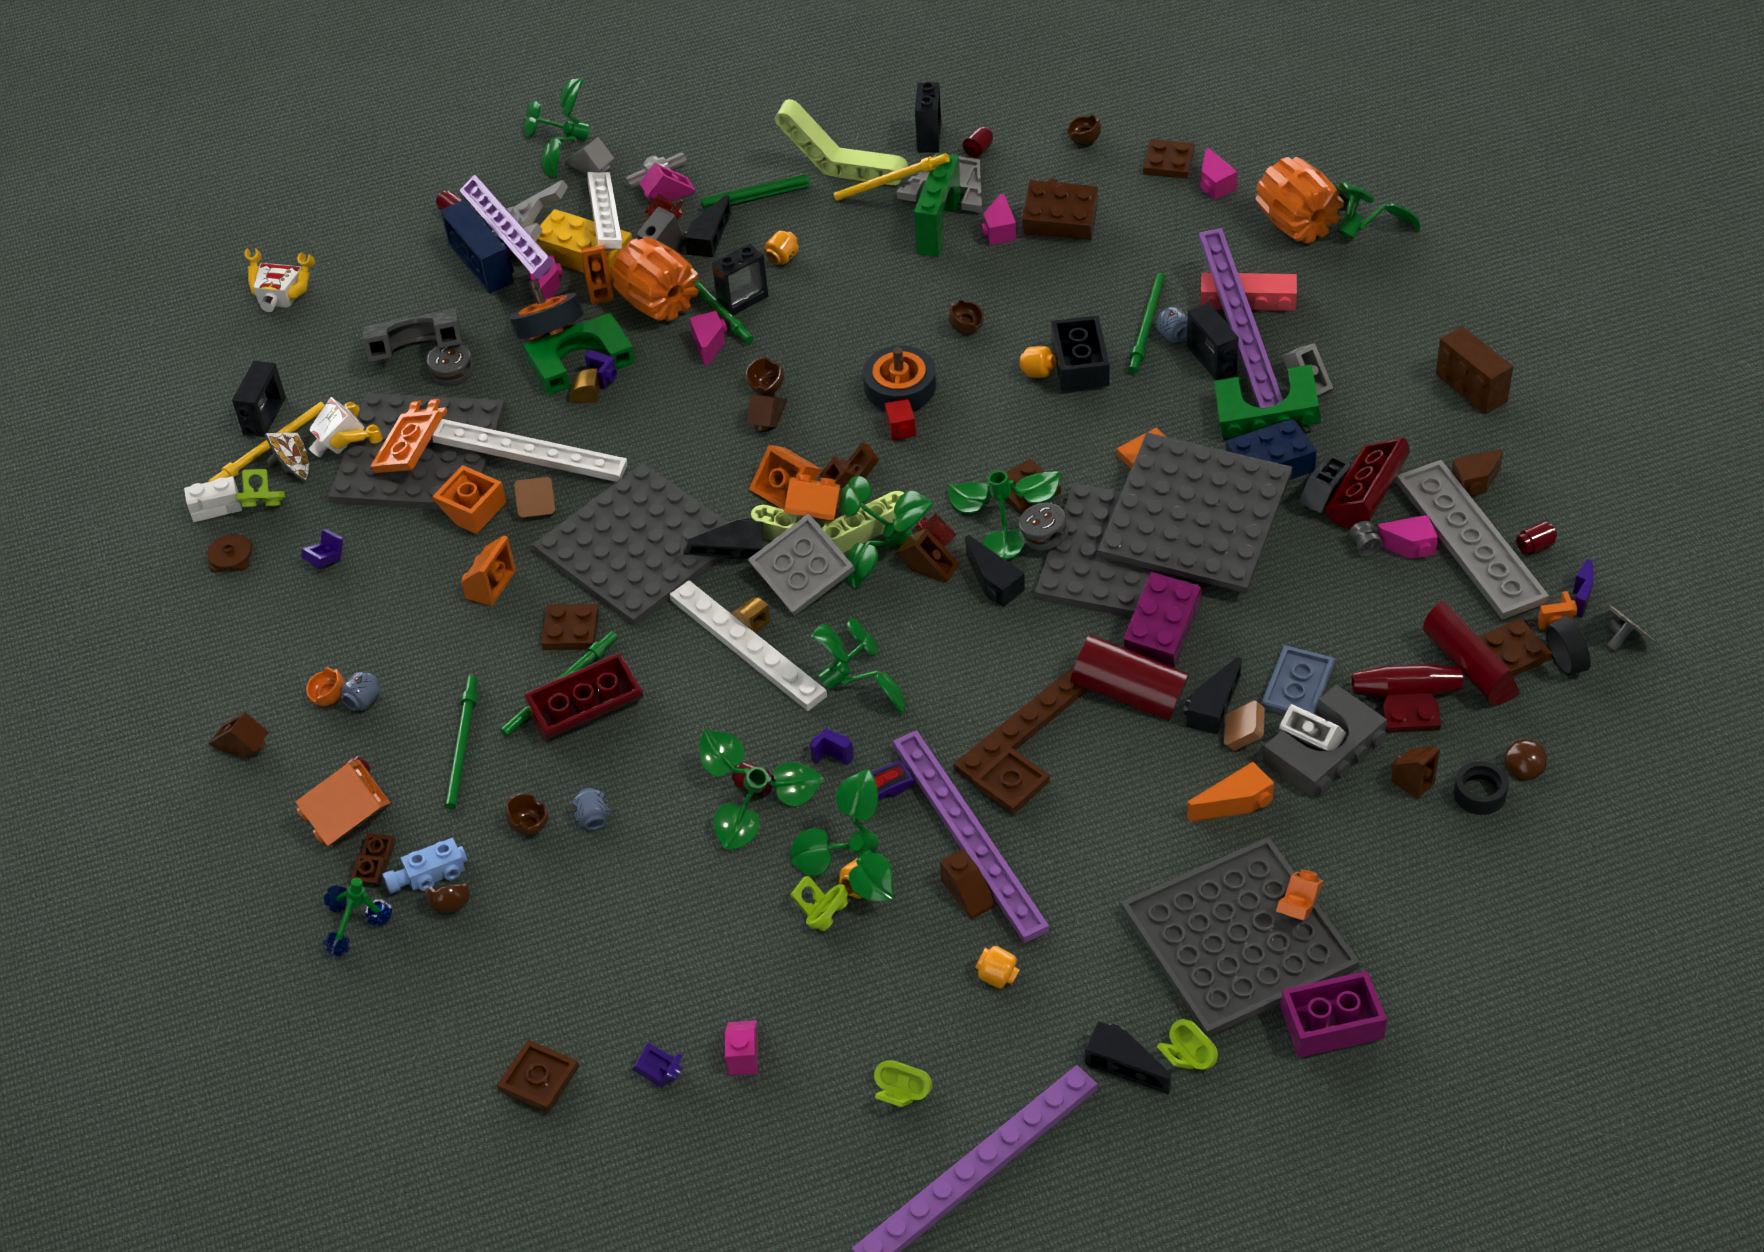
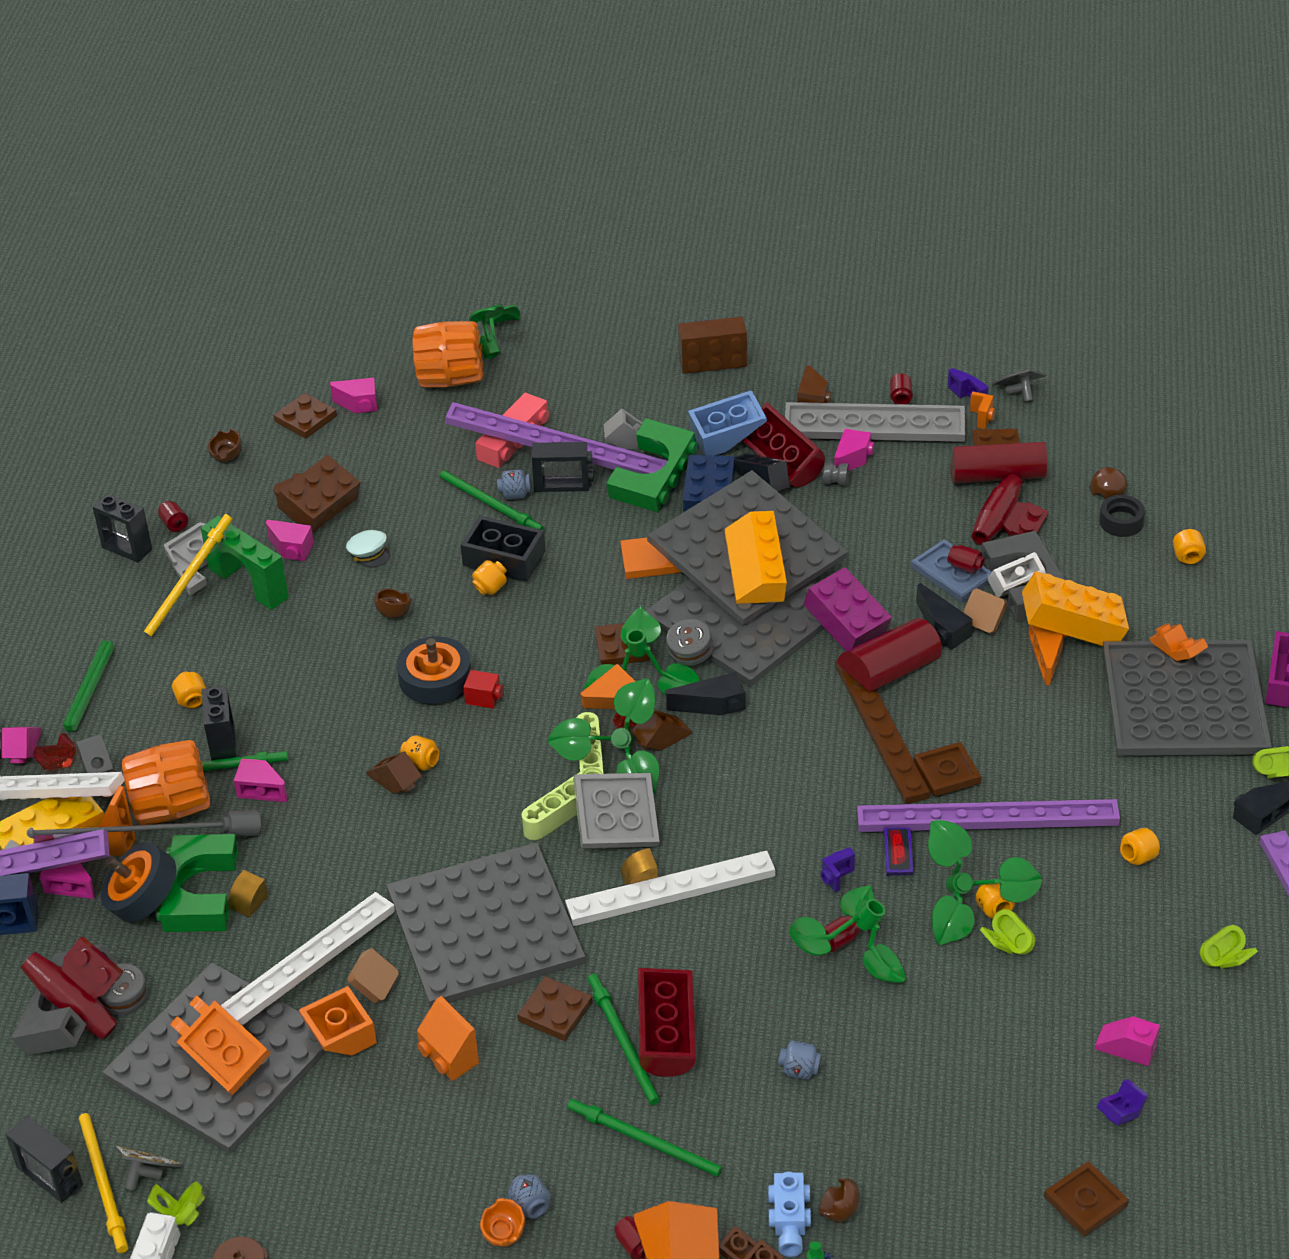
camera: 65 degrees left, 5 degrees down
(326, 551) = (306, 1170): dark purple bracket -> none
(339, 427) = (147, 1103): torso -> none
(417, 332) = (77, 983): none -> dark red plate
(526, 814) = (778, 1110): reddish brown hair -> none
(604, 364) = (229, 869): dark purple bracket -> none
(645, 340) = (233, 822): none -> dark grey flag
(707, 229) = (118, 734): black slope -> none
(733, 540) = (549, 846): black slope -> none
(764, 376) = (352, 757): reddish brown hair -> none
(775, 473) = (491, 790): orange slope -> none
(797, 414) = (421, 751): none -> light orange head
(812, 497) = (545, 772): orange slope -> none
(826, 153) = (113, 608): yellowish green beam -> none
(838, 670) = (757, 832): green plant -> none
(859, 464) = (512, 743): reddish brown slope -> none
(953, 501) = (602, 692): none -> orange slope
(966, 884) = (1041, 834): reddish brown slope -> none
(1026, 273) = (369, 548): none -> light aqua piece
(1168, 521) = (756, 559): none -> light orange slope
(1278, 789) = (1074, 609): none -> light orange brick
(1305, 681) = (965, 559): none -> dark red brick
(1362, 424) = (726, 422): none -> medium blue slope
(1416, 770) = (1090, 536): reddish brown slope -> none
(1469, 859) = (1189, 546): none -> light orange head
(1568, 646) = (1027, 398): black tyre -> none

